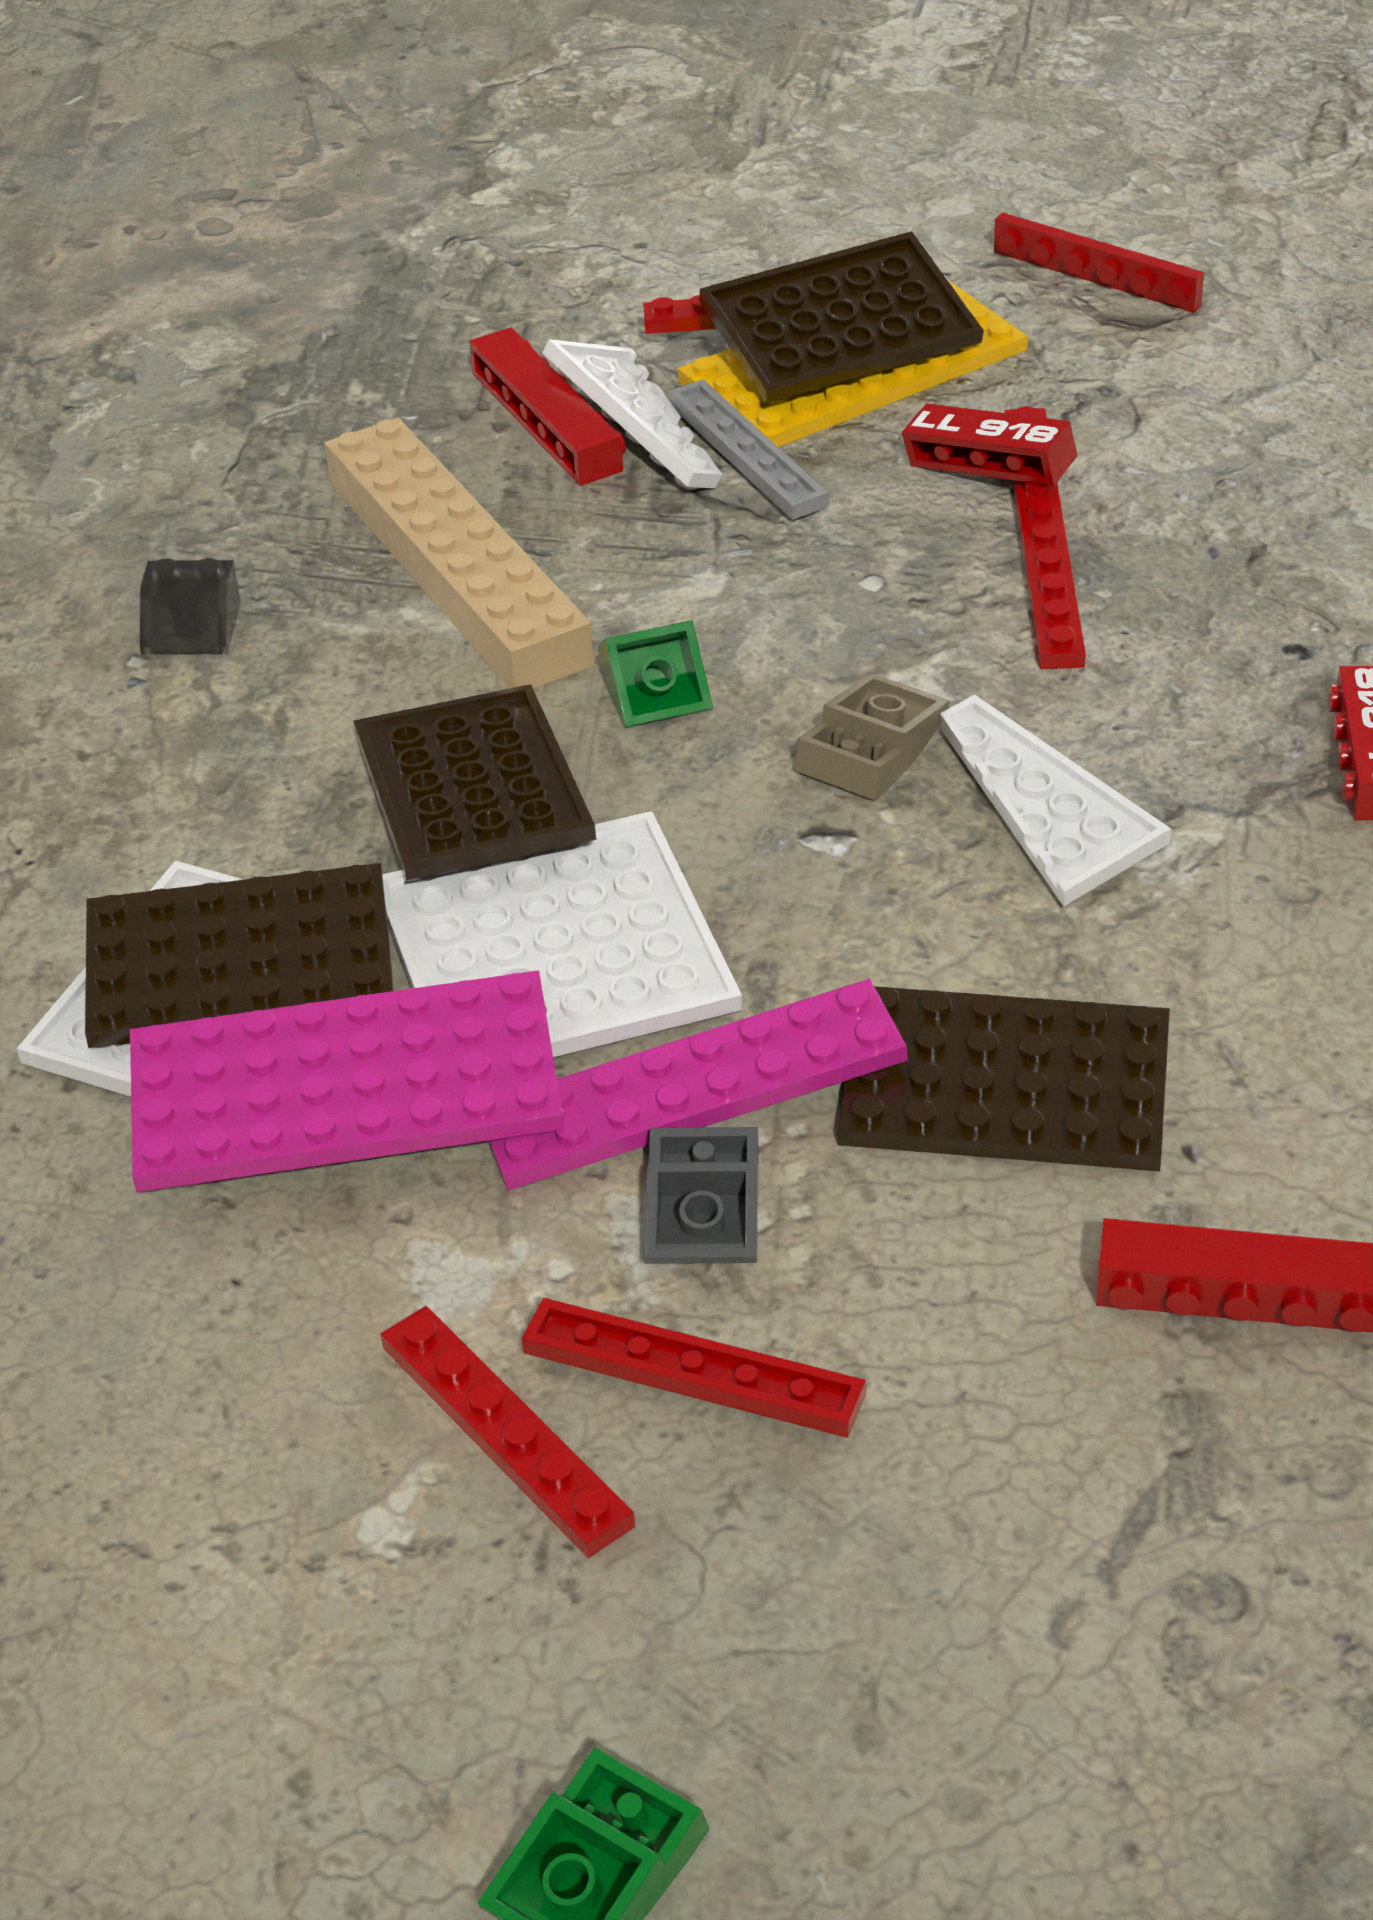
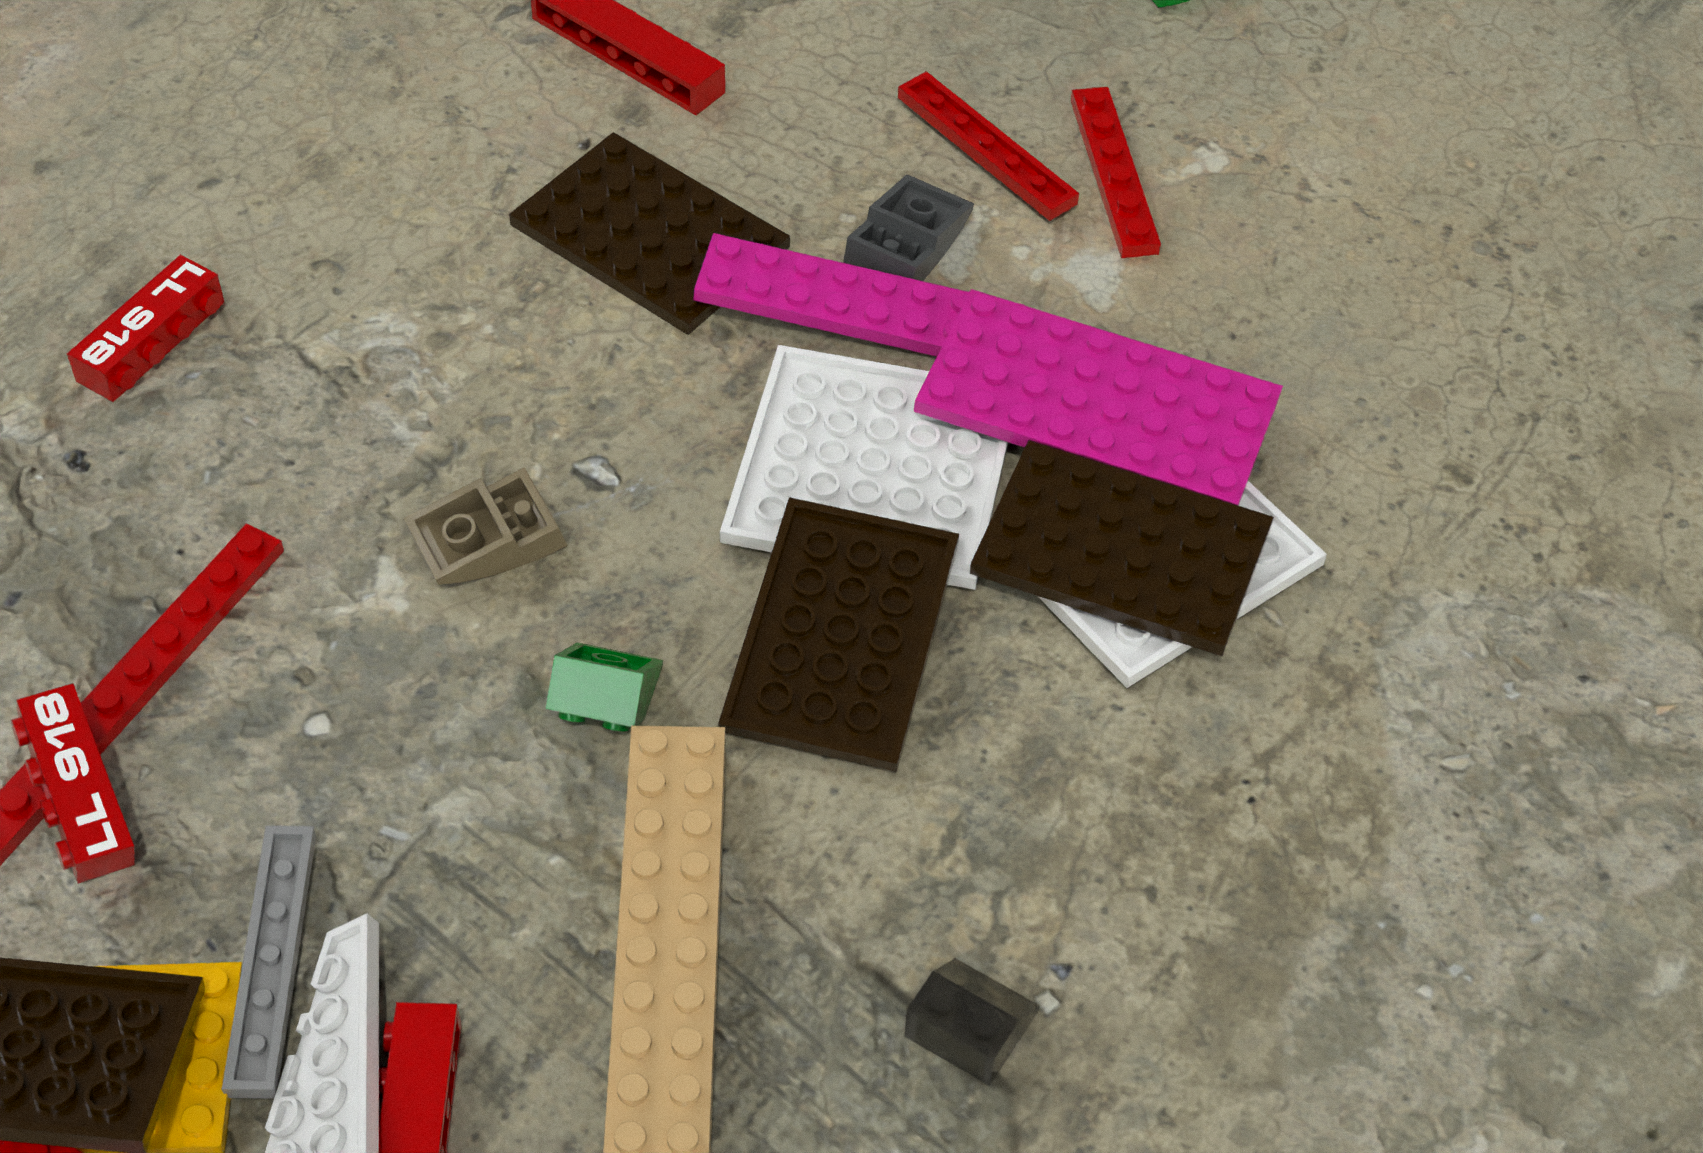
camera: 155 degrees left, 10 degrees up
(1058, 811) = (418, 397): white wing -> none

